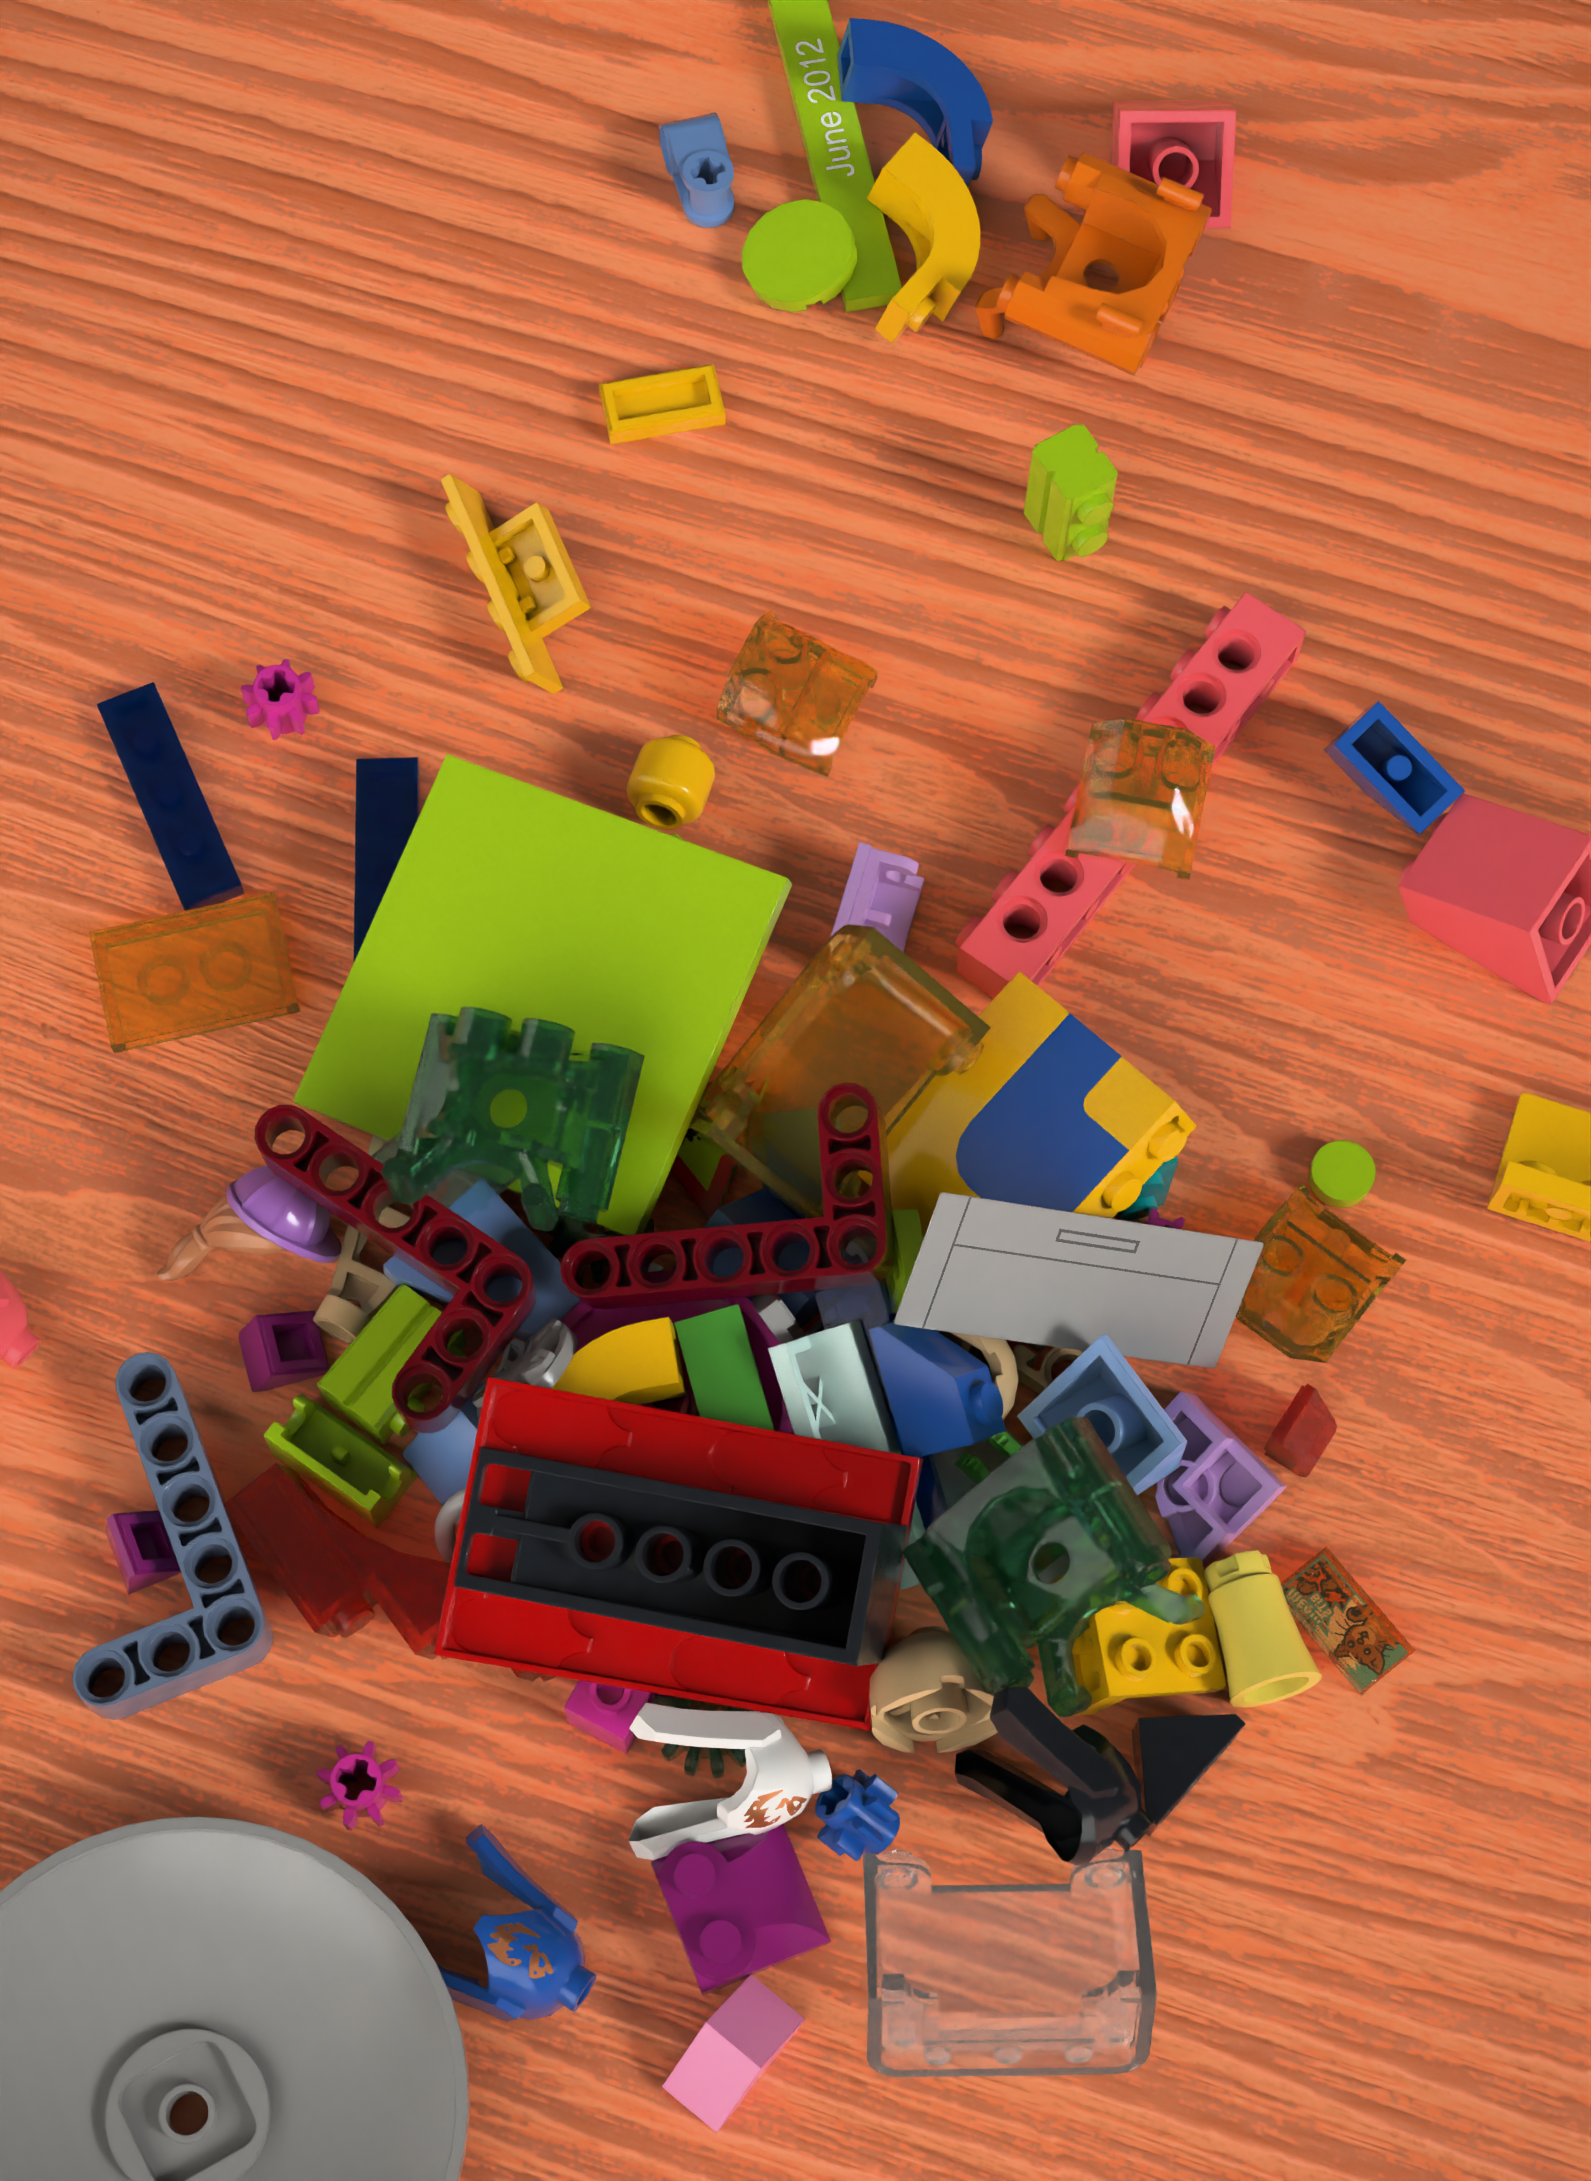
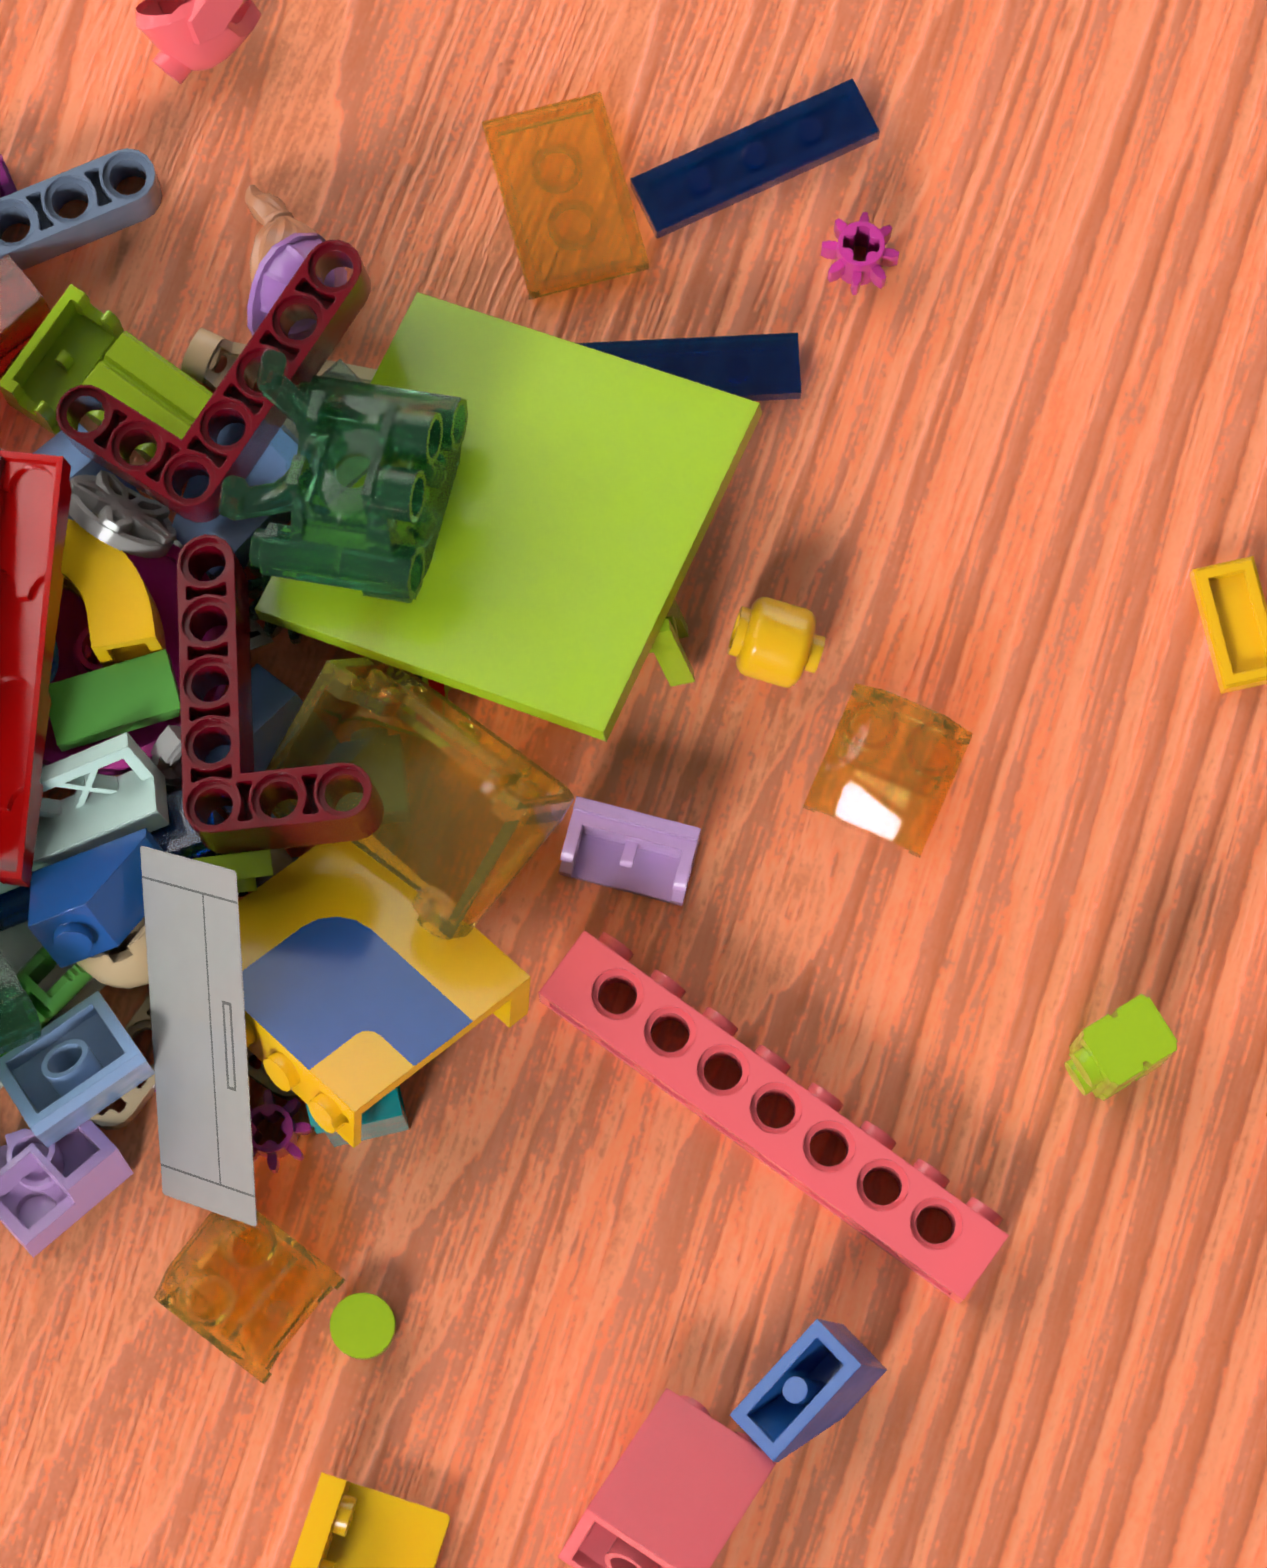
camera: 90 degrees right, 10 degrees up
(282, 1350) = (177, 306): magenta slope -> none
(525, 576) = (1010, 483): yellow bracket -> none
(1141, 795) = (743, 1112): clear yellow slope -> none
(1302, 1432) = (86, 1274): clear red slope -> none

